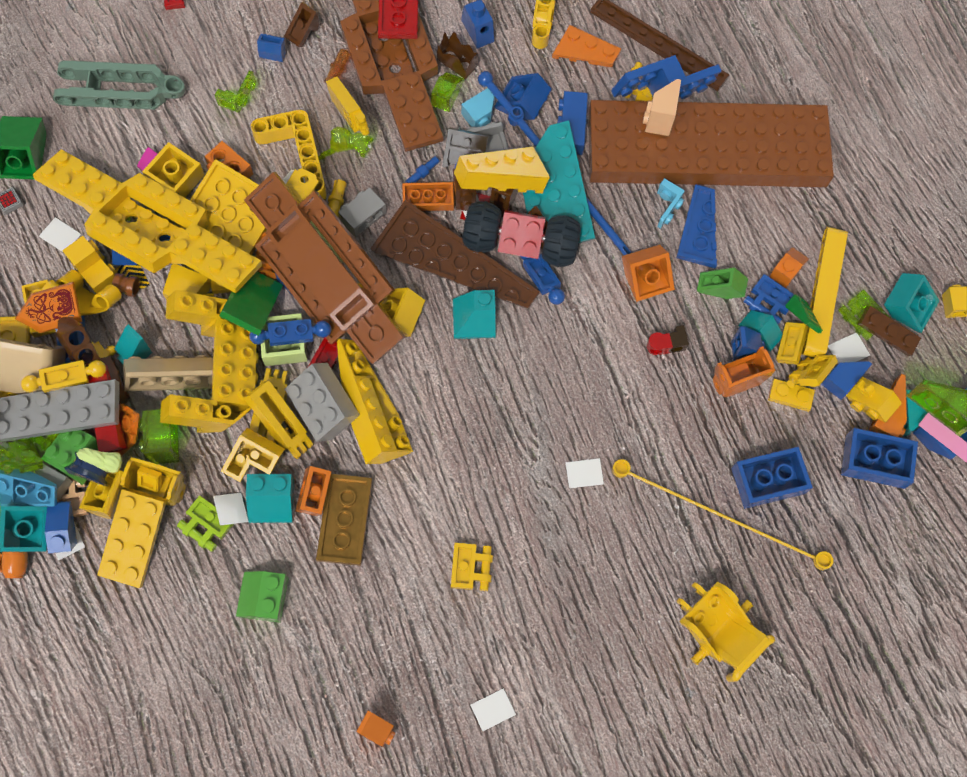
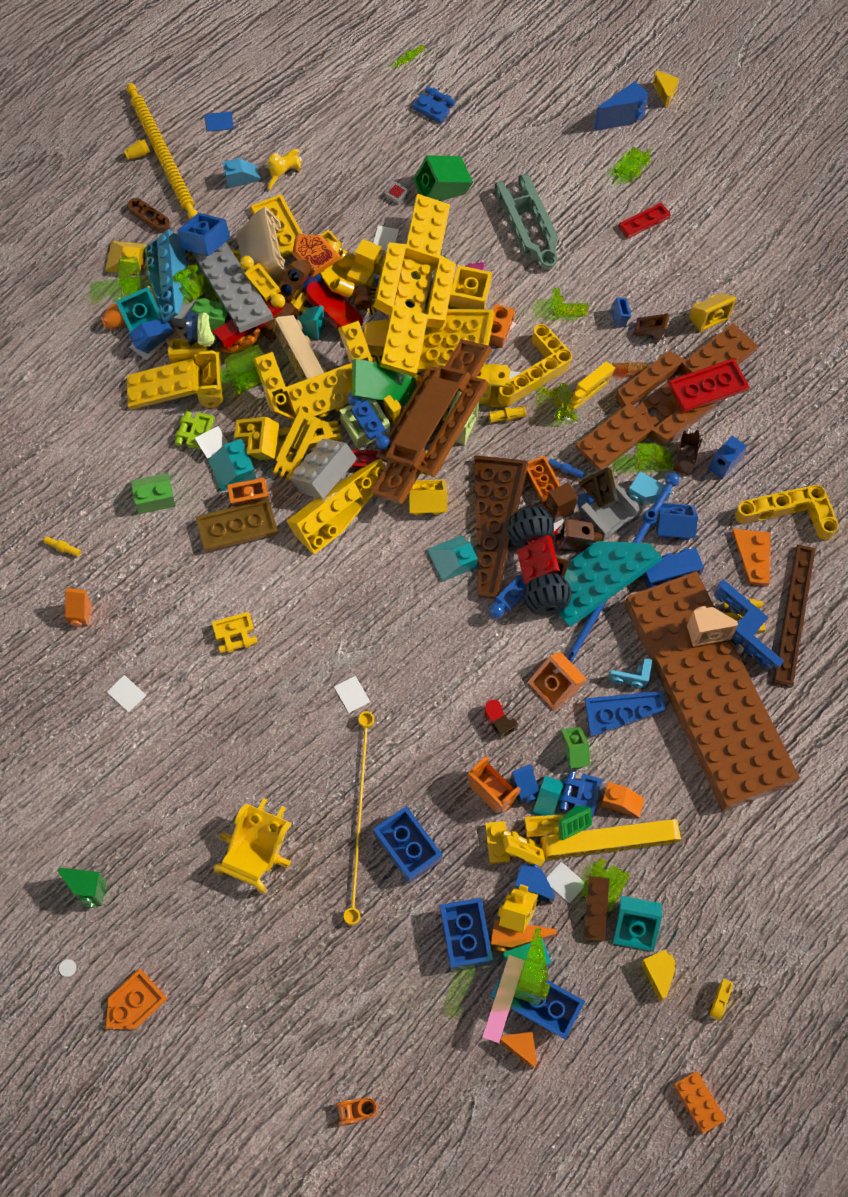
camera: 70 degrees right, 5 degrees down
(137, 313) = (336, 308): none -> red tile
(285, 304) = (392, 409): none -> yellow plate
(285, 723) = (62, 546): none -> yellow bar
(362, 212) = (504, 436): light grey brick -> none
(502, 170) = (583, 518): yellow wedge -> none

